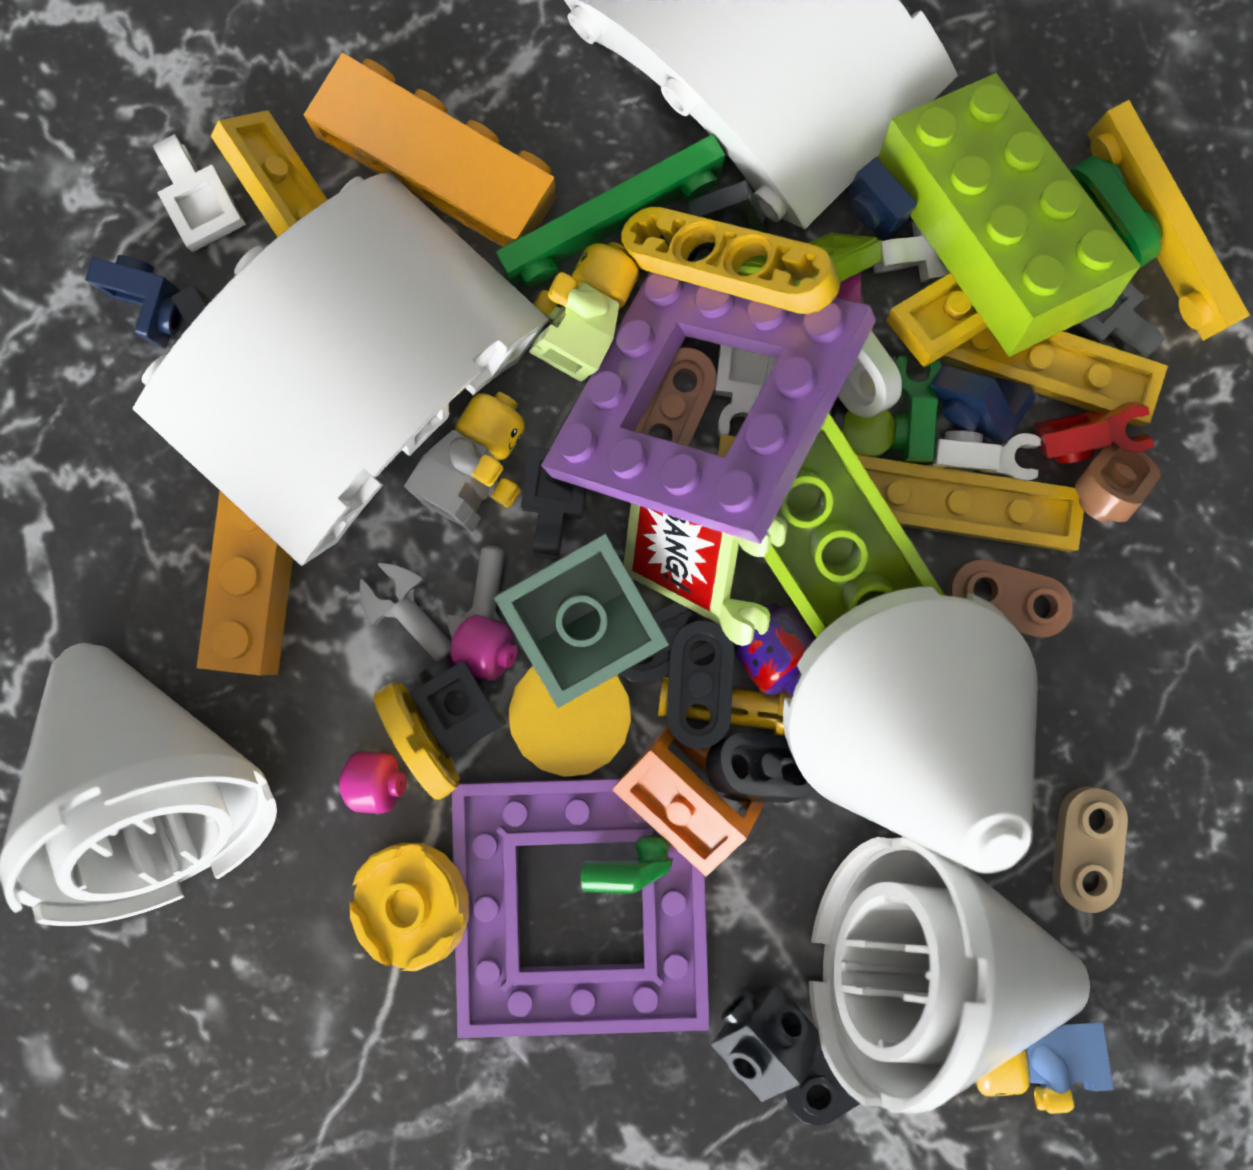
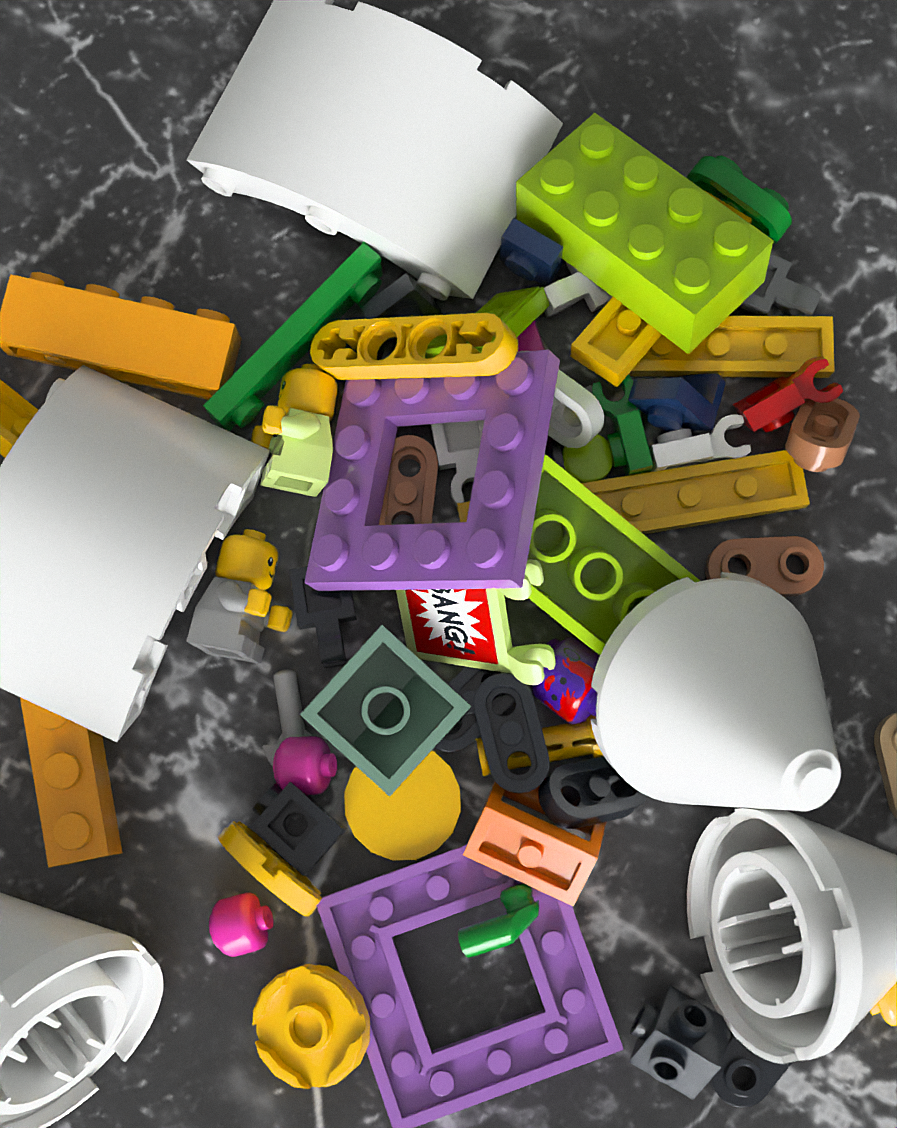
camera: 15 degrees left, 5 degrees down
(405, 610) = (222, 755): light grey bar -> none
(1192, 267) = (844, 242): yellow plate -> none

